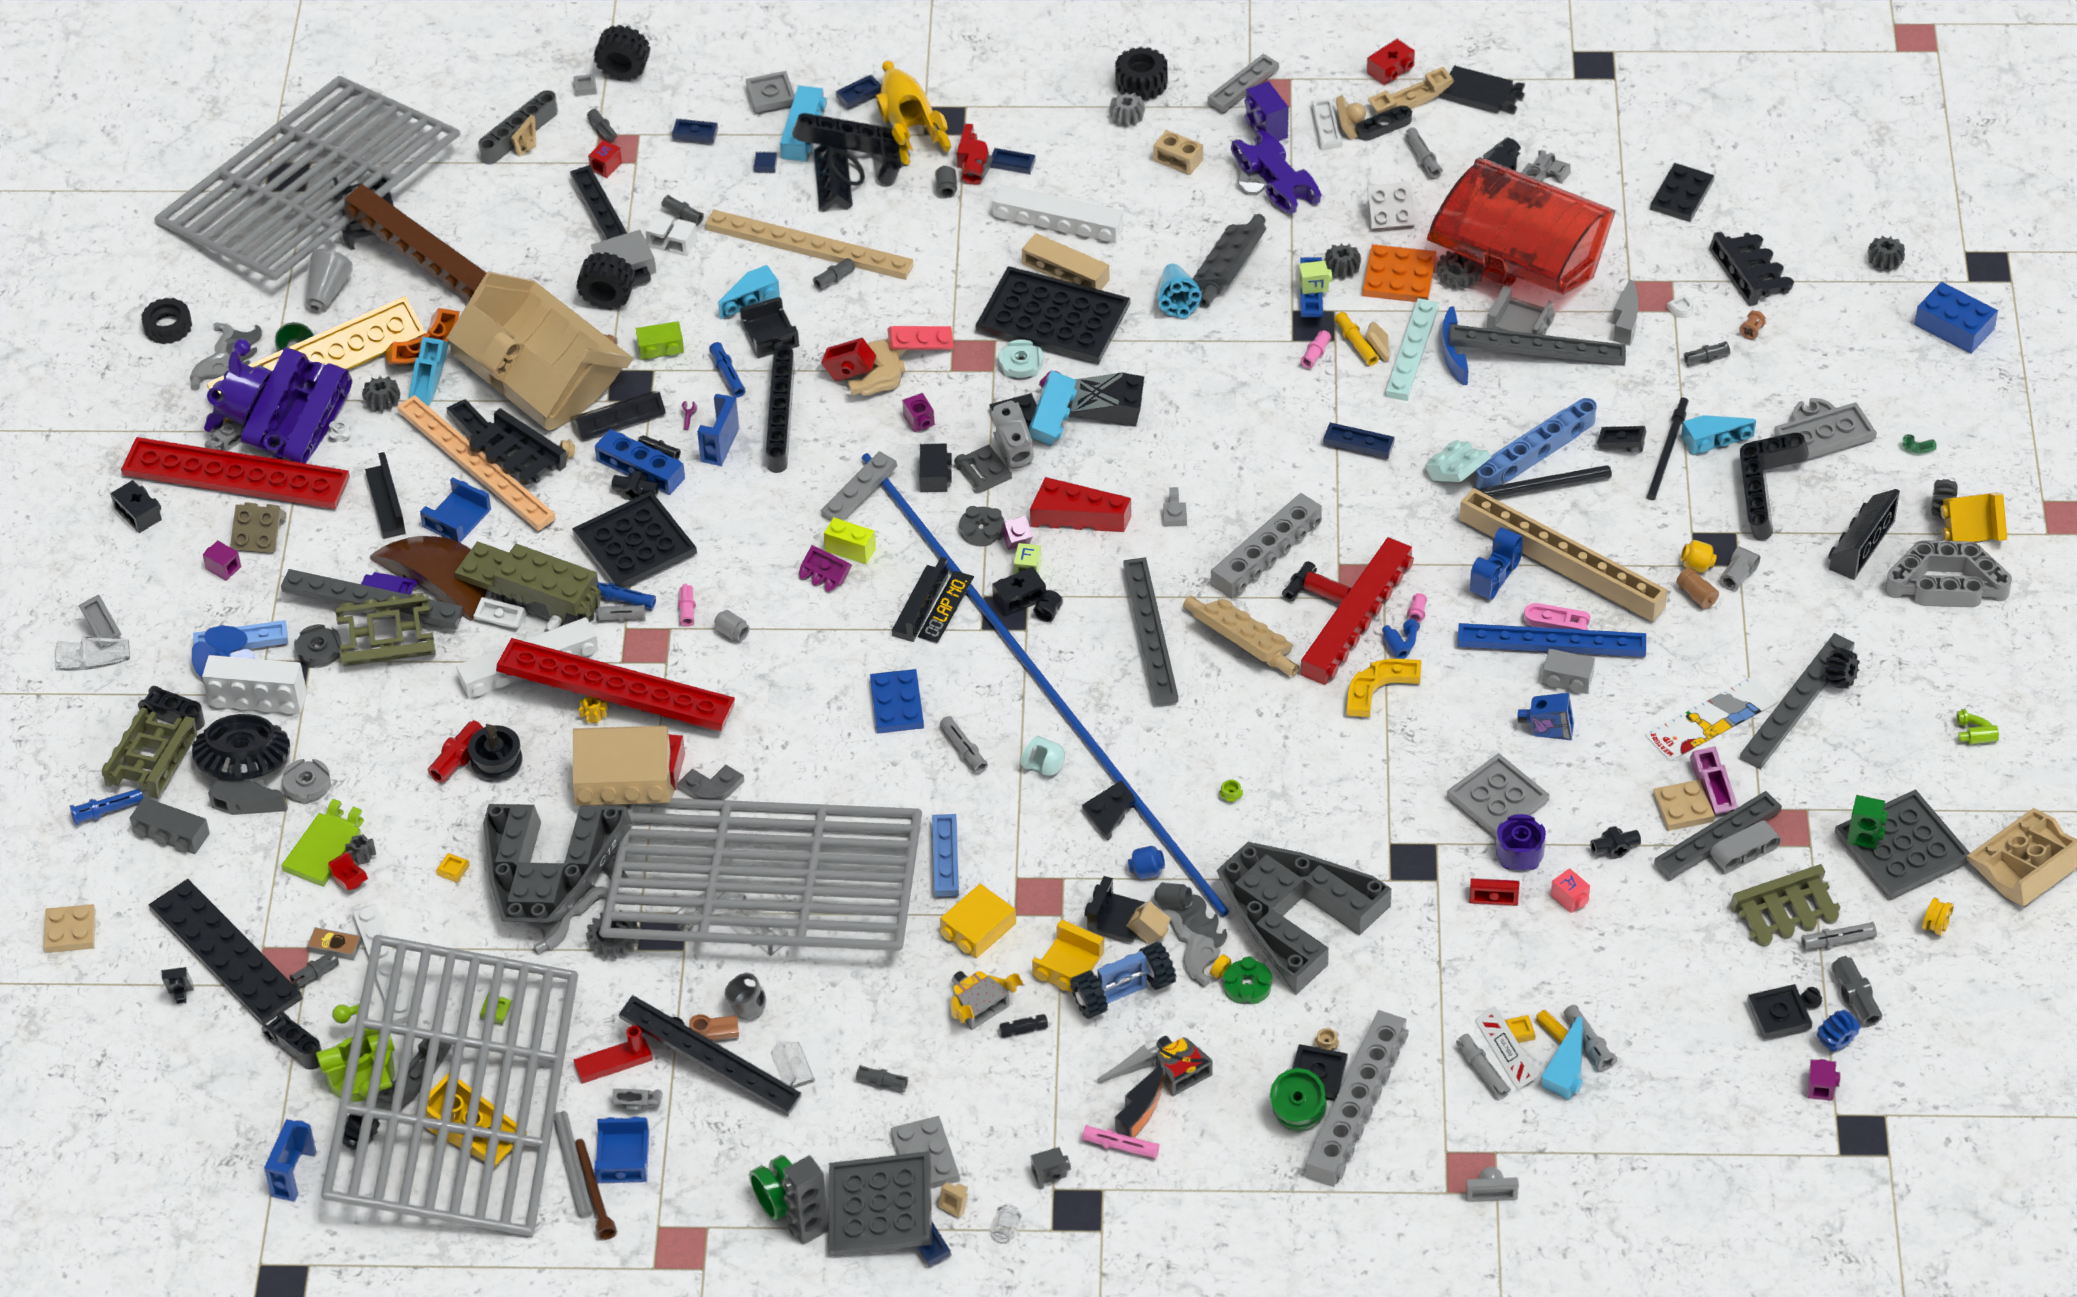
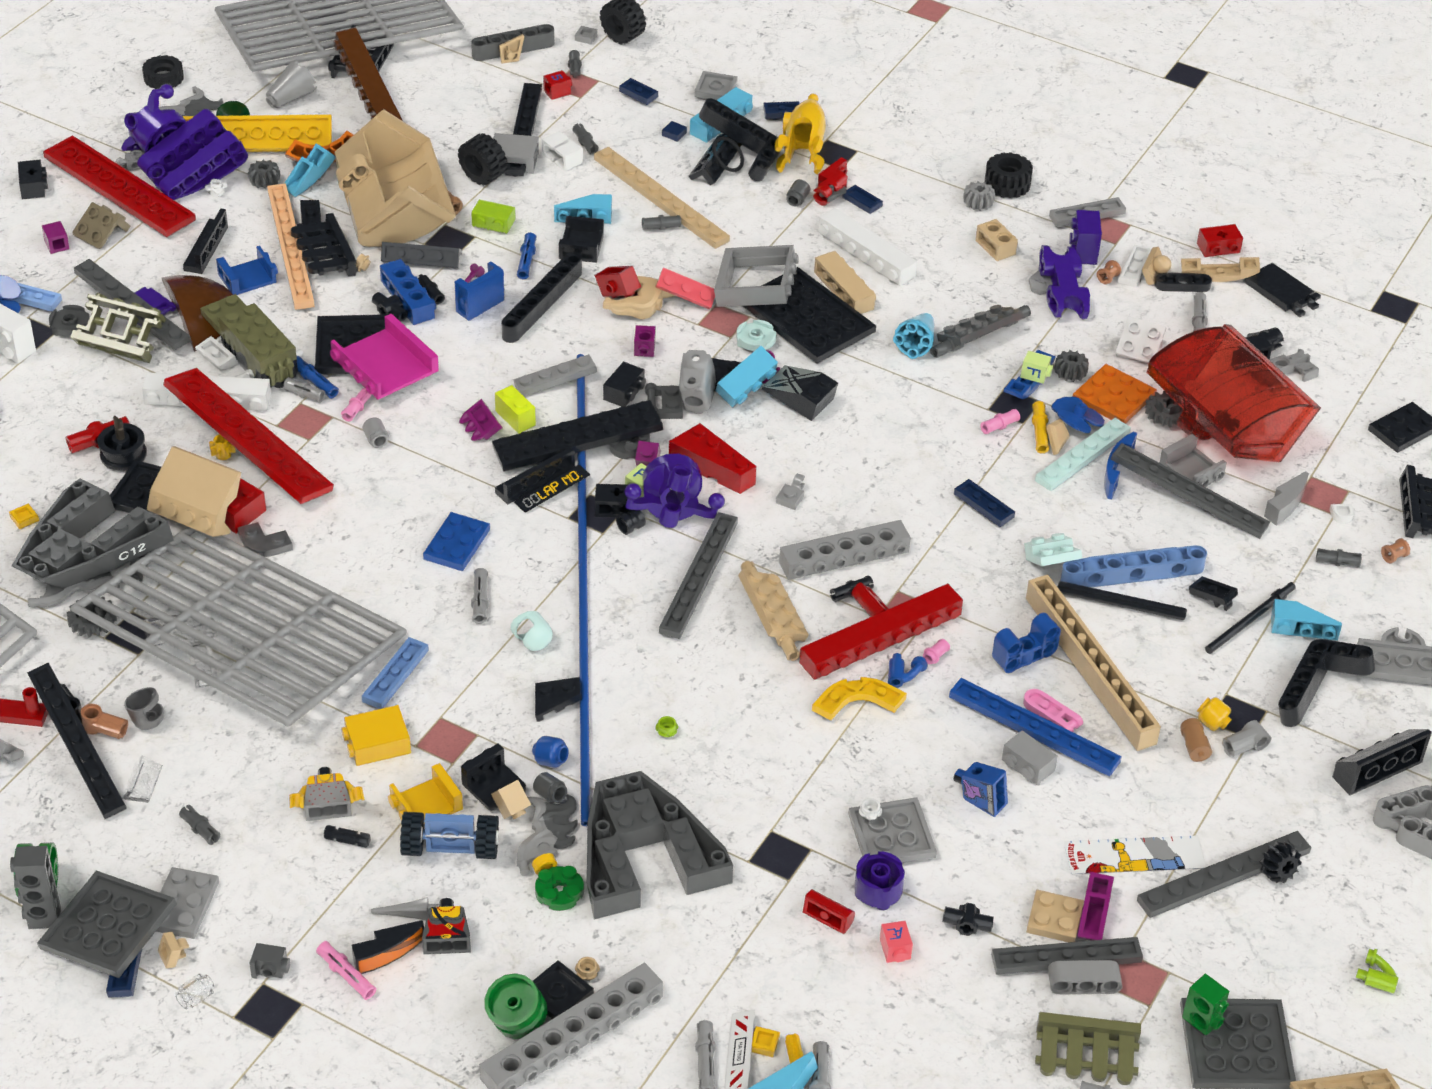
camera: 25 degrees right, 5 degrees down
(547, 785) = (134, 487): none -> black plate
(684, 543) = (387, 359): none -> dark pink panel
(931, 540) = (578, 434): none -> black plate
(967, 270) = (755, 256): none -> light grey window
(1069, 558) = (680, 501): none -> dark purple piece
(1312, 143) = (1108, 272): none -> nougat bush
(1381, 310) = (1075, 413): none -> blue piece
(1469, 782) = (870, 809): none -> white plate

